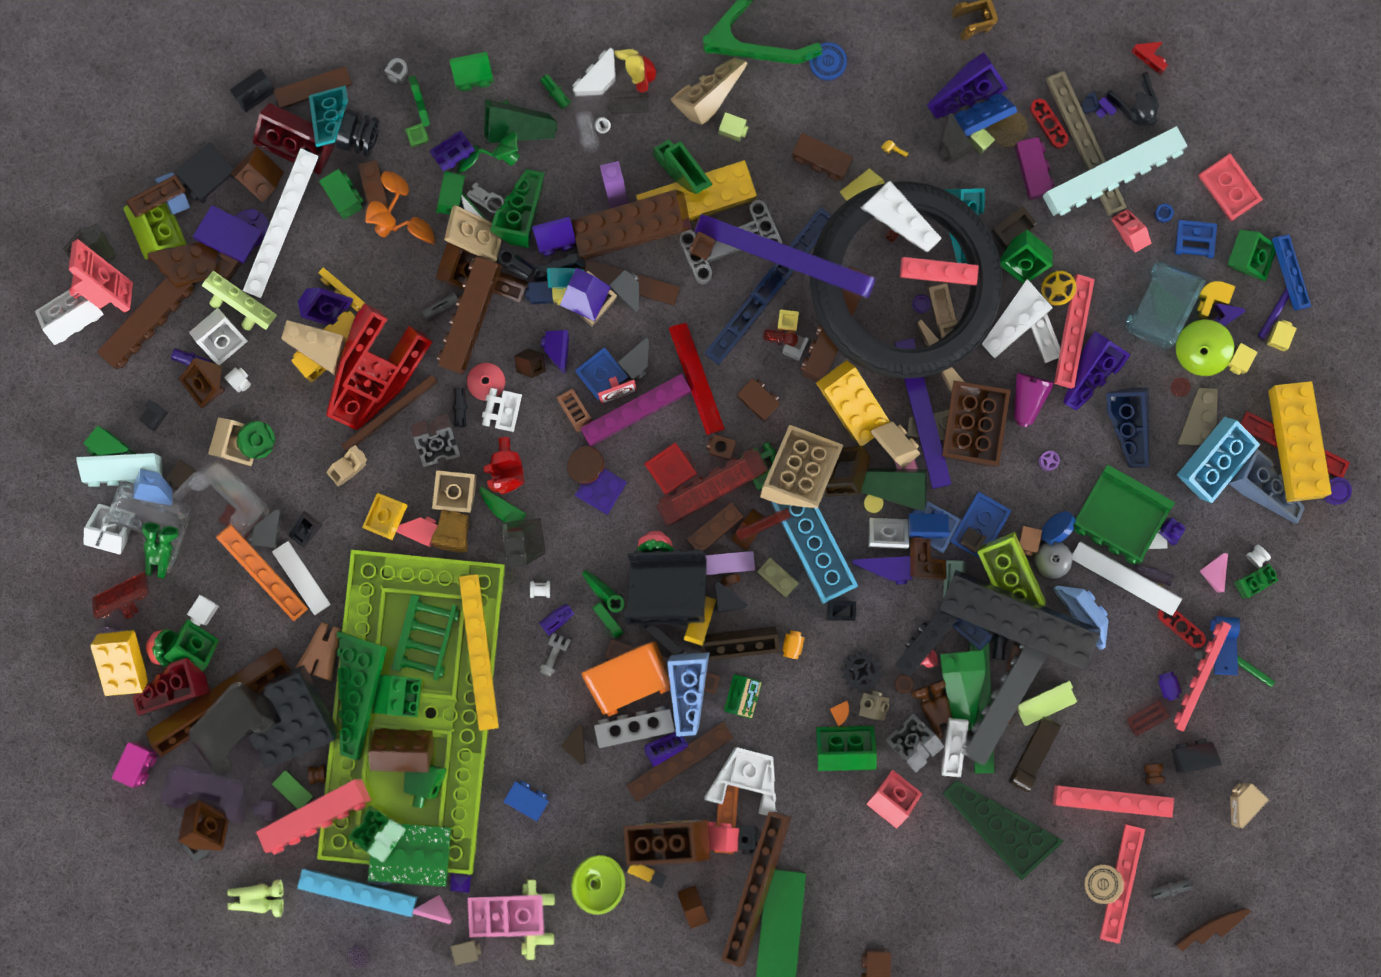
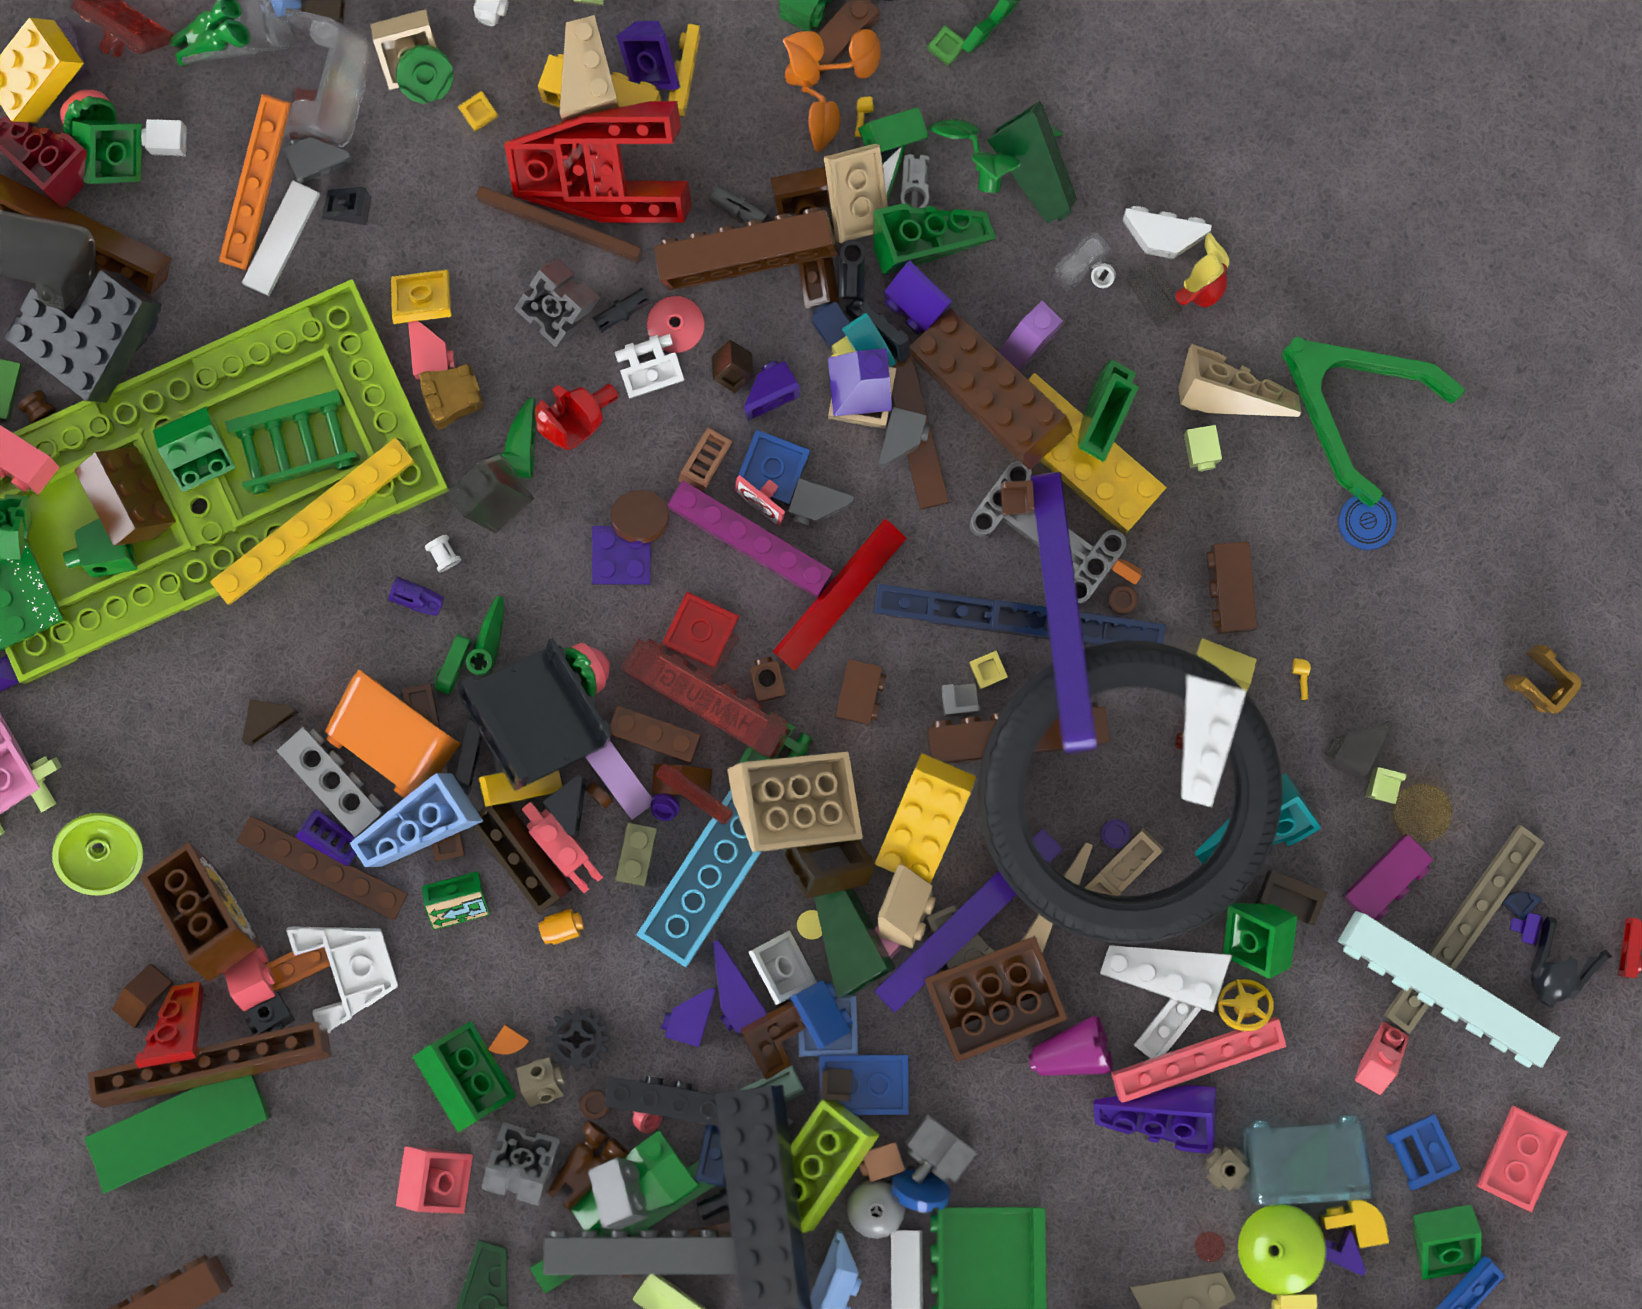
camera: 60 degrees right, 0 degrees up
(295, 422) = (478, 111): none -> yellow tile
(321, 653) = (197, 320): nougat piece -> none
(347, 466) = (457, 210): tan brick -> none
(357, 687) = (175, 391): green wing -> none
(424, 202) = (864, 105): none -> yellow hand
(450, 147) = (960, 102): dark purple plate -> none
(454, 491) = (504, 366): tan slope -> none
(472, 71) = (1071, 65): green slope -> none
(527, 800) = (156, 697): blue brick -> none
(555, 91) = (1110, 188): green axle -> none
(557, 646) = (343, 623): light grey hinge -> none
(646, 873) = (150, 924): yellow piece -> none
(725, 895) = (177, 1028): none -> red wing
(746, 618) = (559, 846): none -> coral hinge
(759, 547) = (664, 807): none -> dark purple plate
(778, 209) = (1127, 570): none -> orange tile
(789, 338) = (963, 686): clear red axle -> none
(792, 222) = (1123, 599): none -> reddish brown tile
(841, 611) = (641, 964): black slope -> none
(886, 601) = (689, 1018): none -> dark purple slope
(939, 271) = (1166, 829): coral plate -> none
(952, 755) = (557, 1215): white tile -> none
(963, 696) = (618, 1193): none -> brick
(971, 84) = (1452, 729): dark purple wedge -> none
(985, 114) = (1419, 769): blue plate -> none
(1041, 505) = (937, 1151): none -> flat silver brick
(1050, 457) = (1005, 1131): medium lavender wheel -> none
(1061, 132) = (1448, 866): red beam -> none
(1130, 418) = (1126, 1203): dark blue wedge -> none
(1136, 351) = (1217, 1162): none -> dark tan brick
(1164, 213) = (1432, 1088): blue tile -> none

